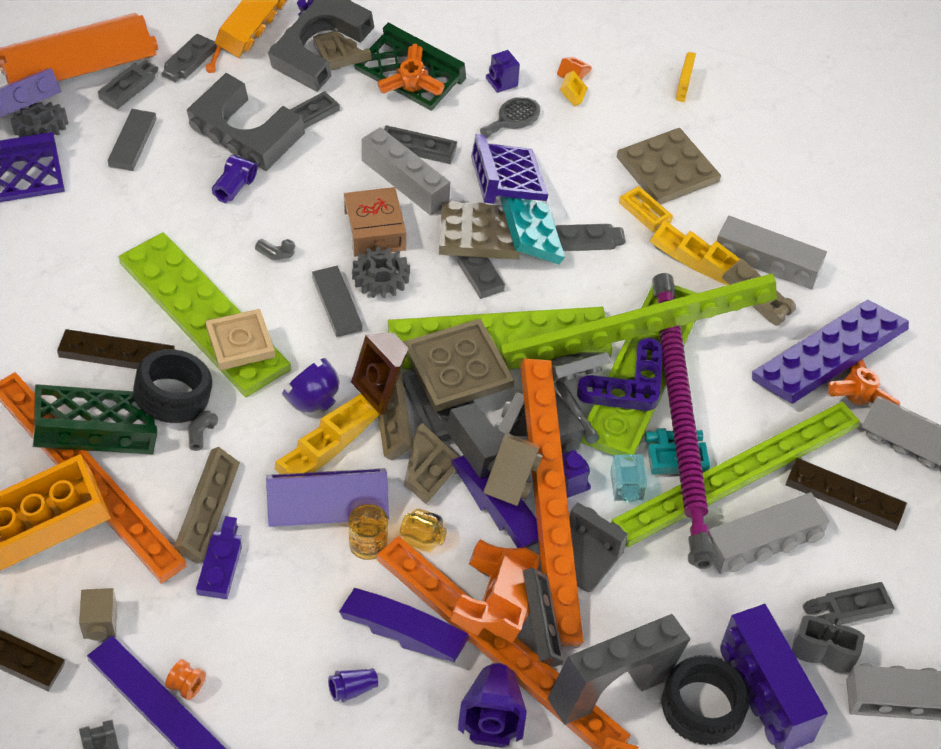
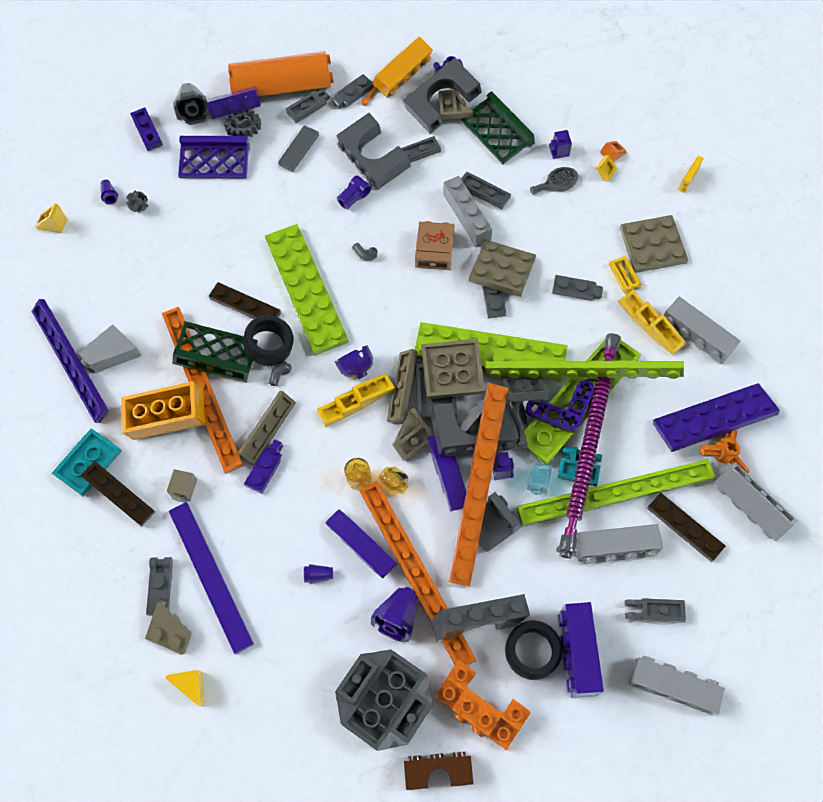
camera: 25 degrees right, 15 degrees up
(185, 679) = (219, 543): orange wheel -> none
(240, 339) = (318, 317): tan plate -> none
(323, 495) = (340, 441): brick -> none
(337, 301) = (392, 299): dark grey tile -> none
(379, 368) = (399, 361): reddish brown slope -> none
(381, 272) = (426, 285): dark grey gear -> none
(412, 75) = (494, 136): orange bush -> none
(490, 173) = (523, 224): dark purple fence -> none
(505, 597) = (431, 540): orange bracket -> none
(512, 469) = (457, 459): dark tan brick -> none
(532, 229) = (537, 275): teal plate -> none
(543, 617) = (446, 566): dark grey tile -> none
(784, 306) = (676, 351): dark tan plate -> none
(832, 645) = (633, 639): dark grey brick -> none

